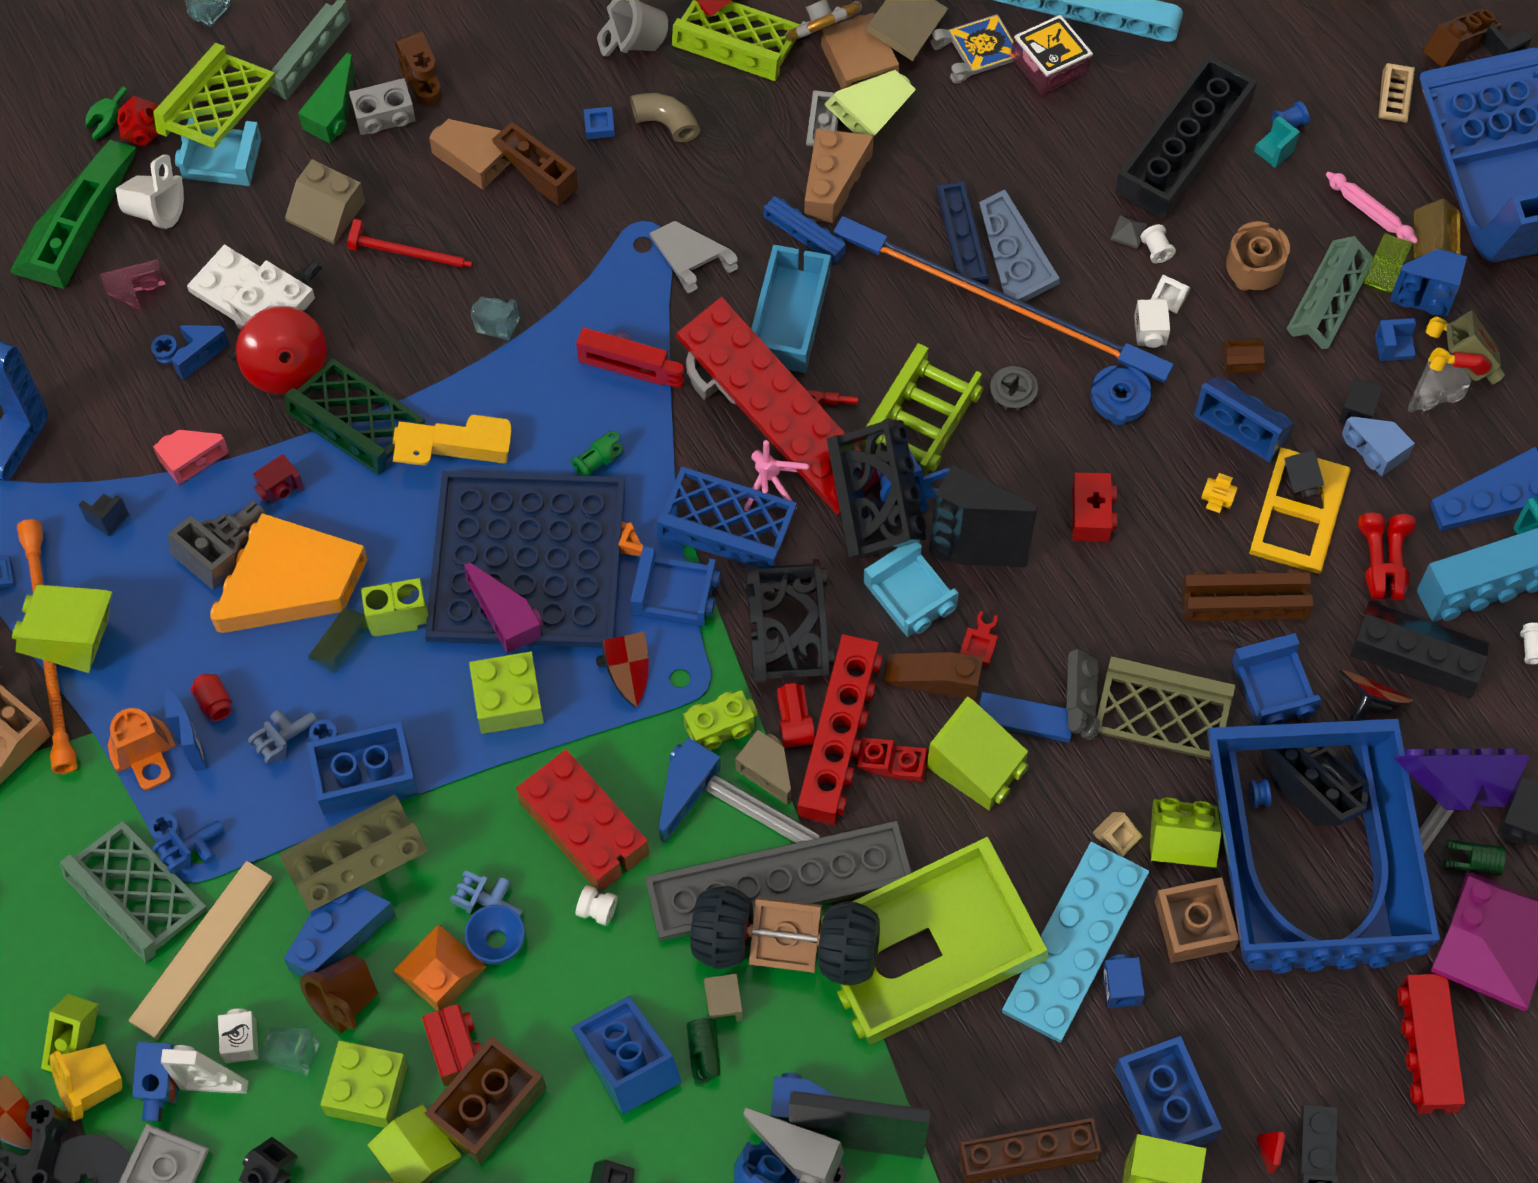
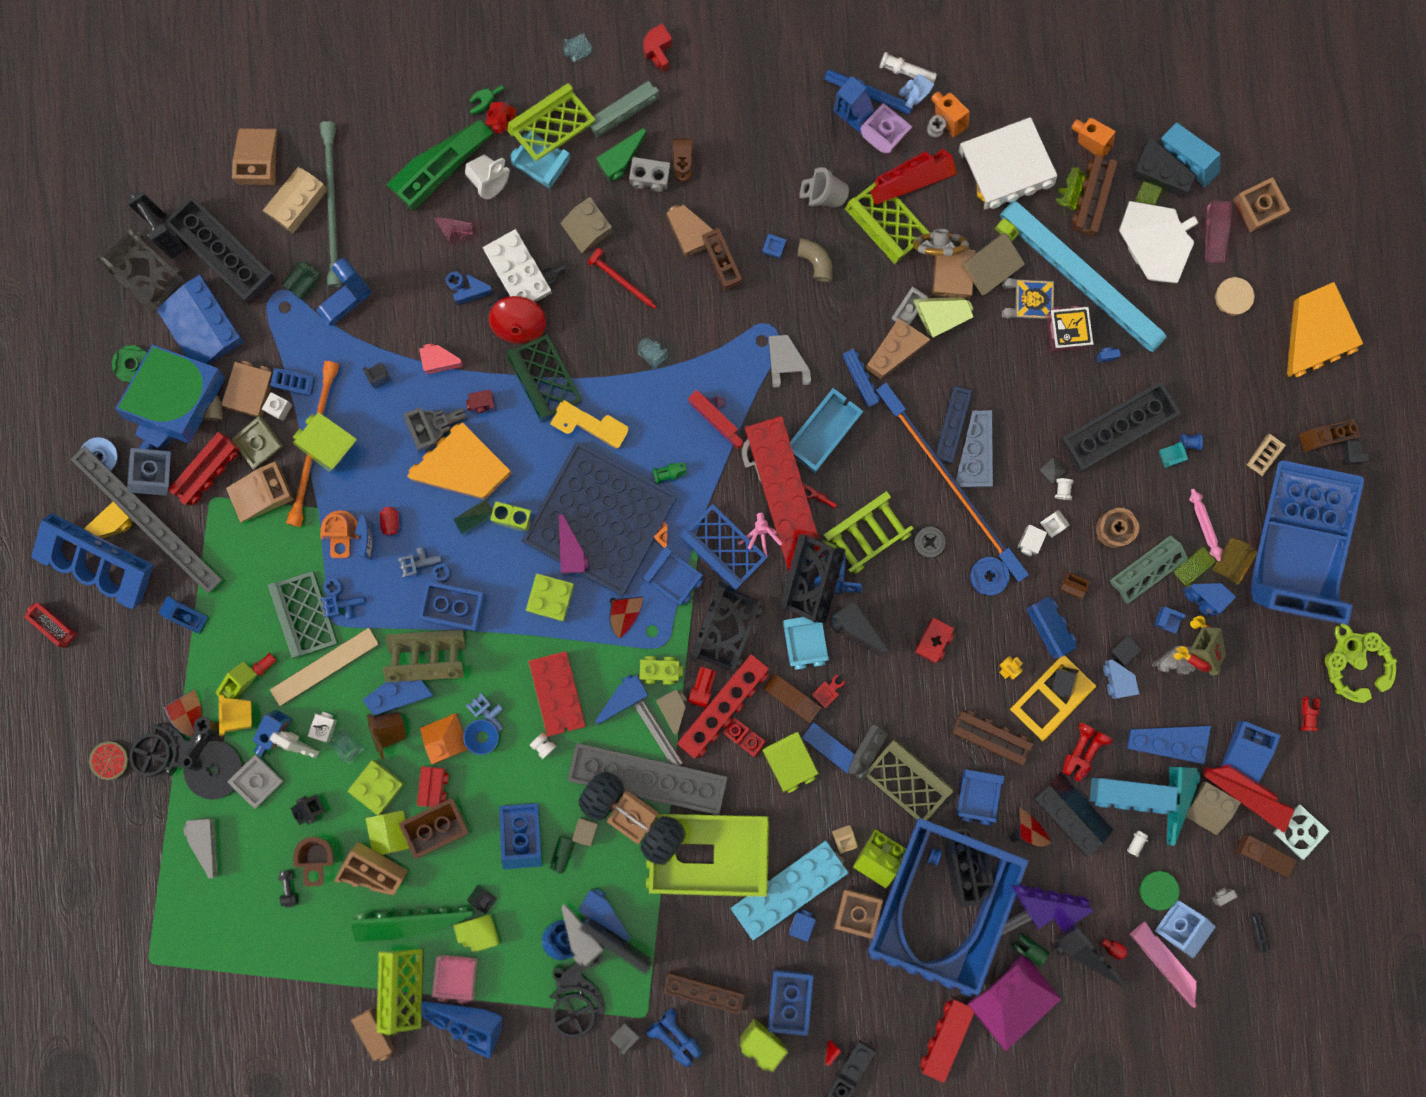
camera: 25 degrees right, 20 degrees up
(104, 986) = (265, 663): none -> red pin
(1120, 64) = (1108, 354): none -> blue plate

